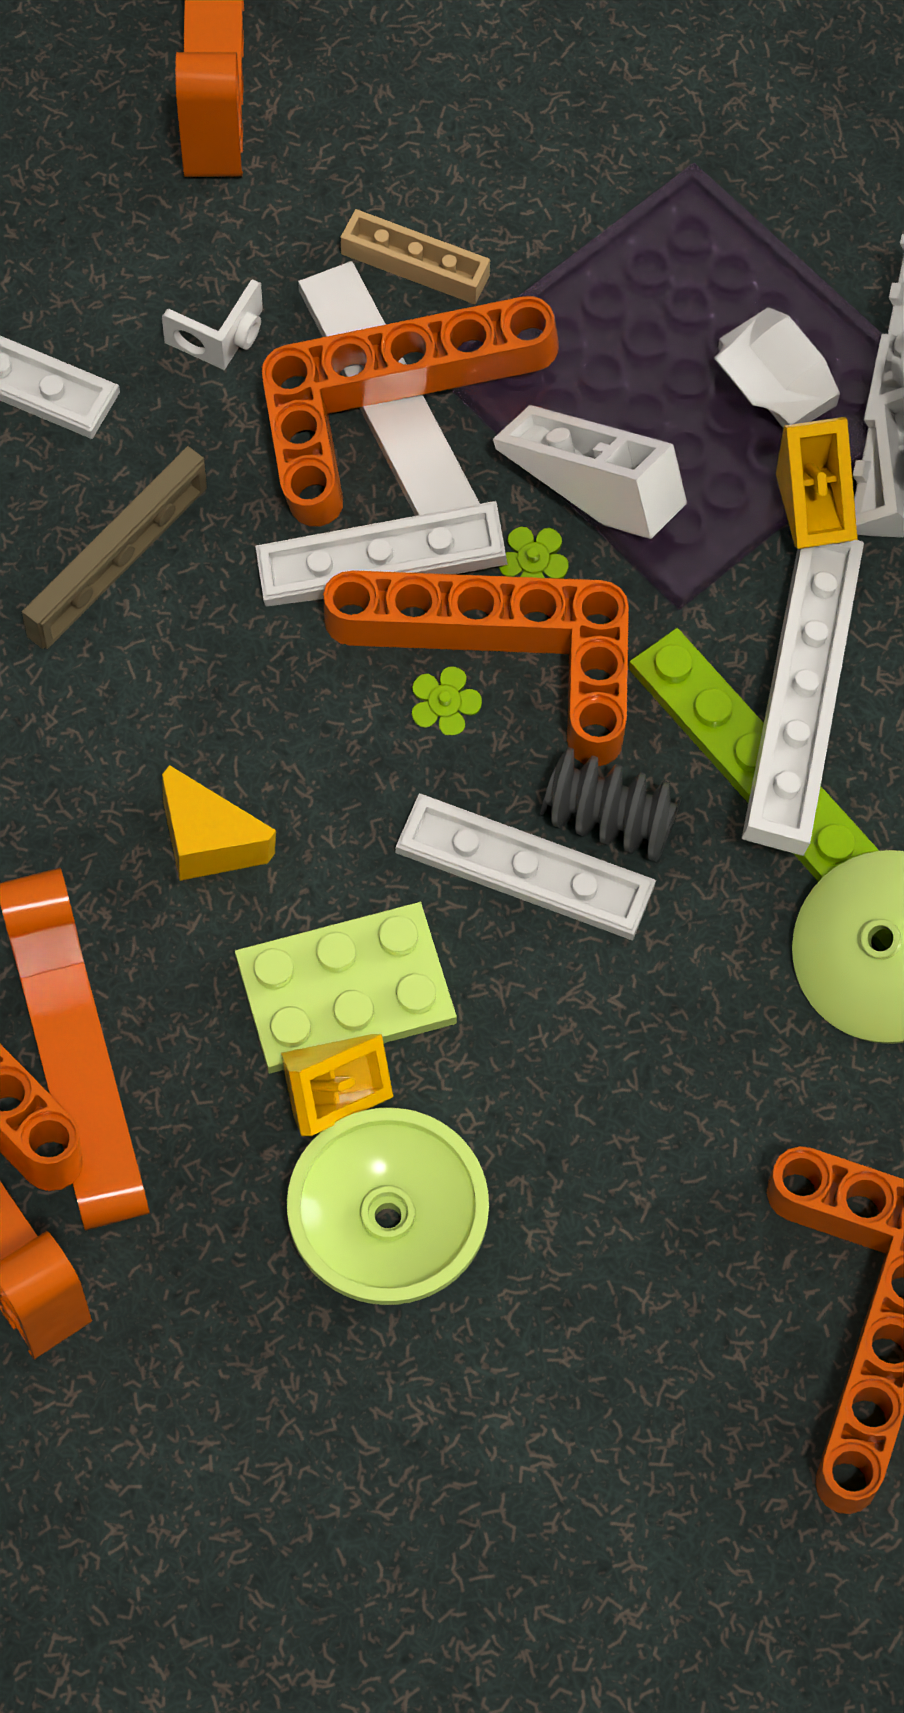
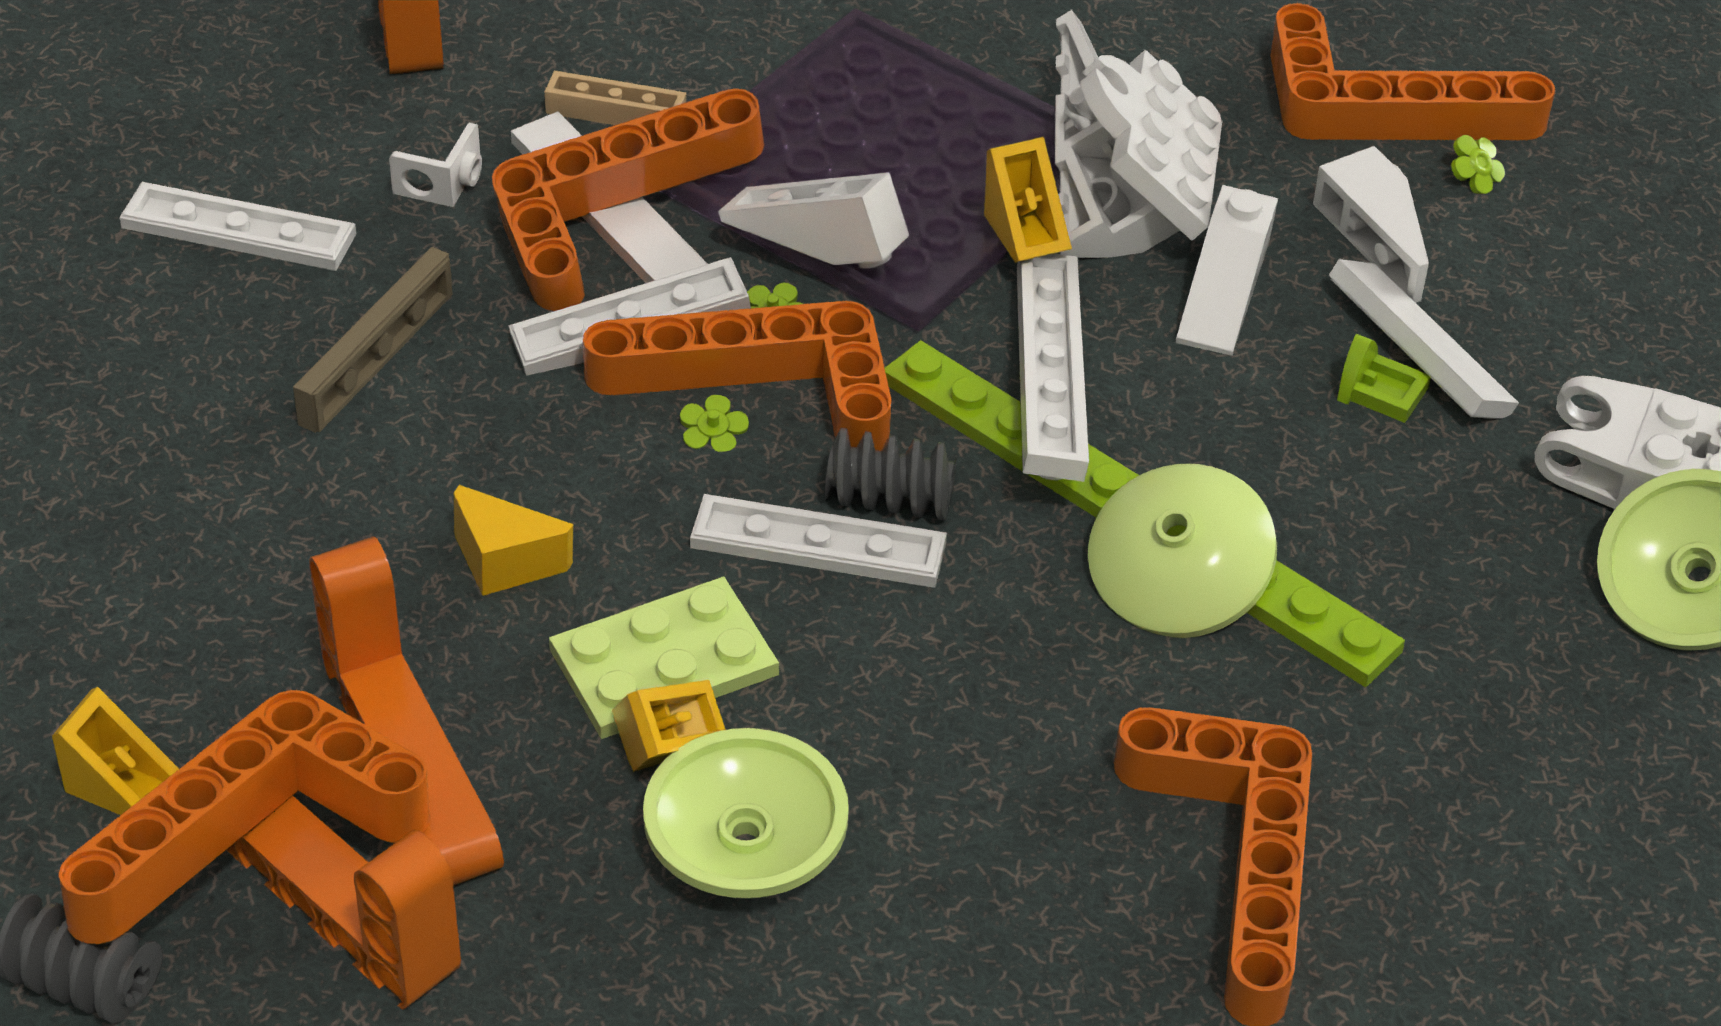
camera: 10 degrees left, 20 degrees down
(778, 368) = (964, 128): white slope -> none

